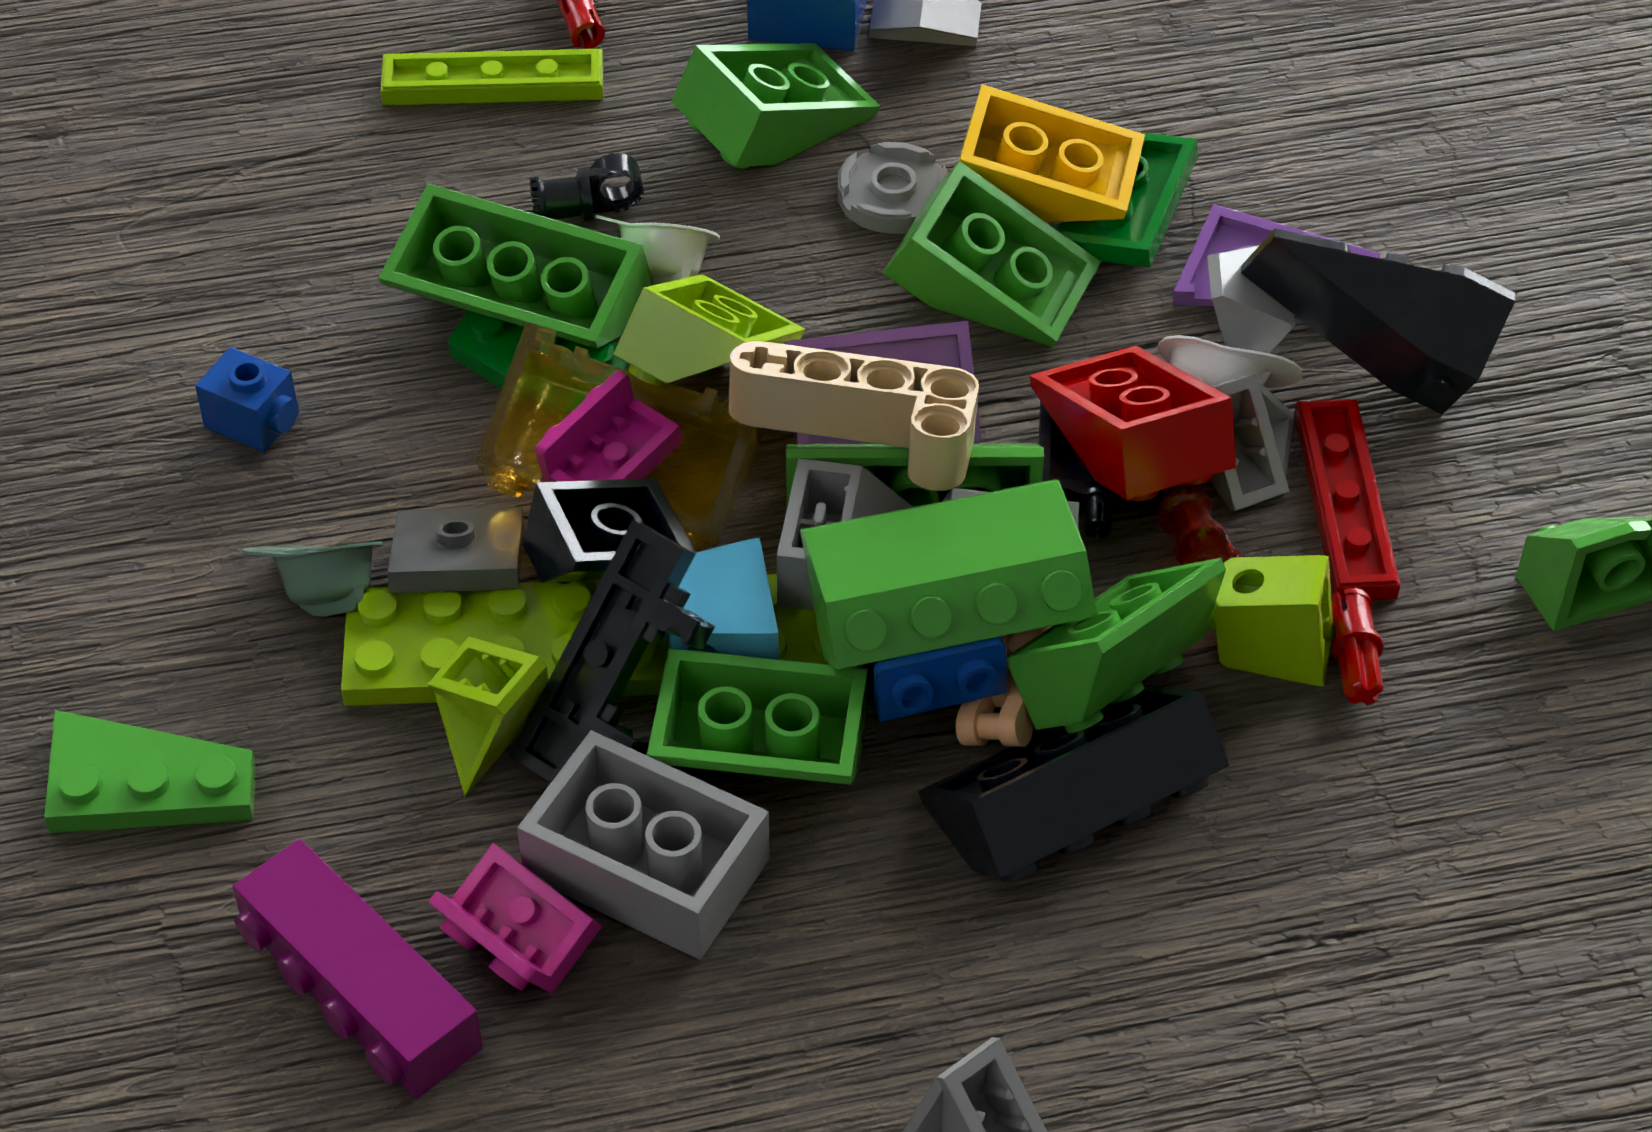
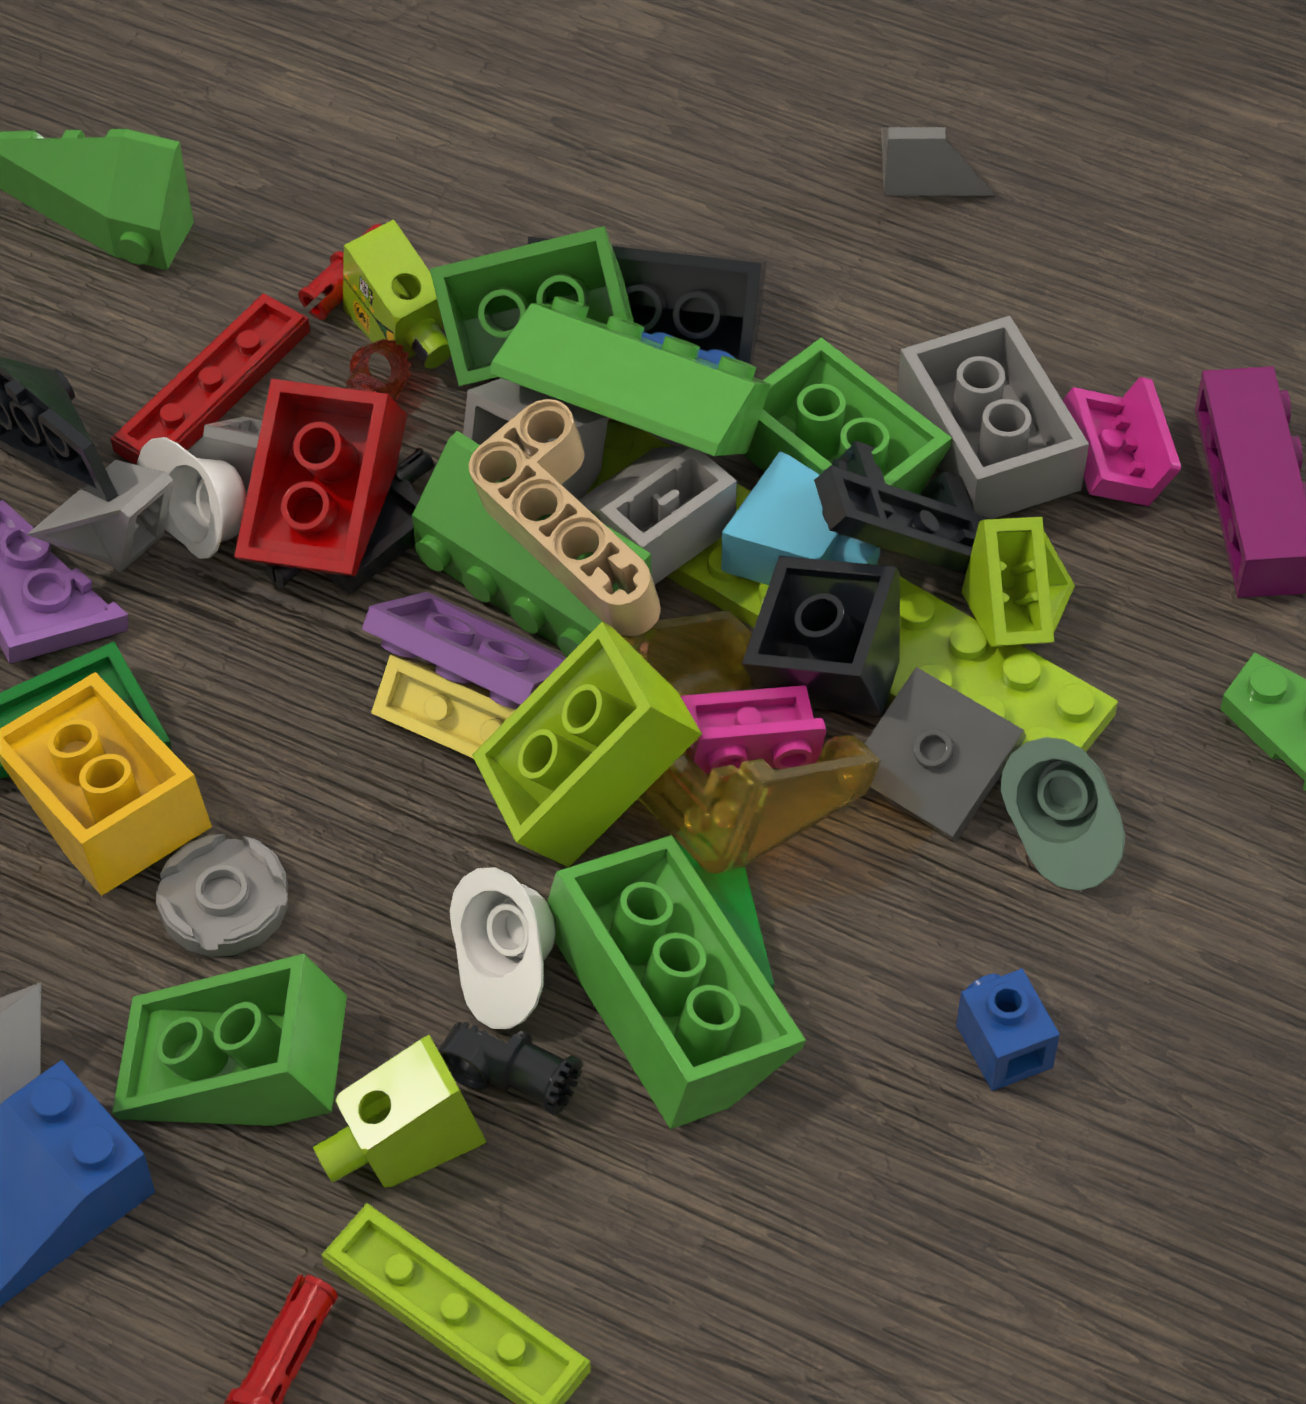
camera: 140 degrees left, 5 degrees up
(615, 99) = (401, 1119): none -> lime torso
(991, 260) = (246, 739): bright green slope -> none

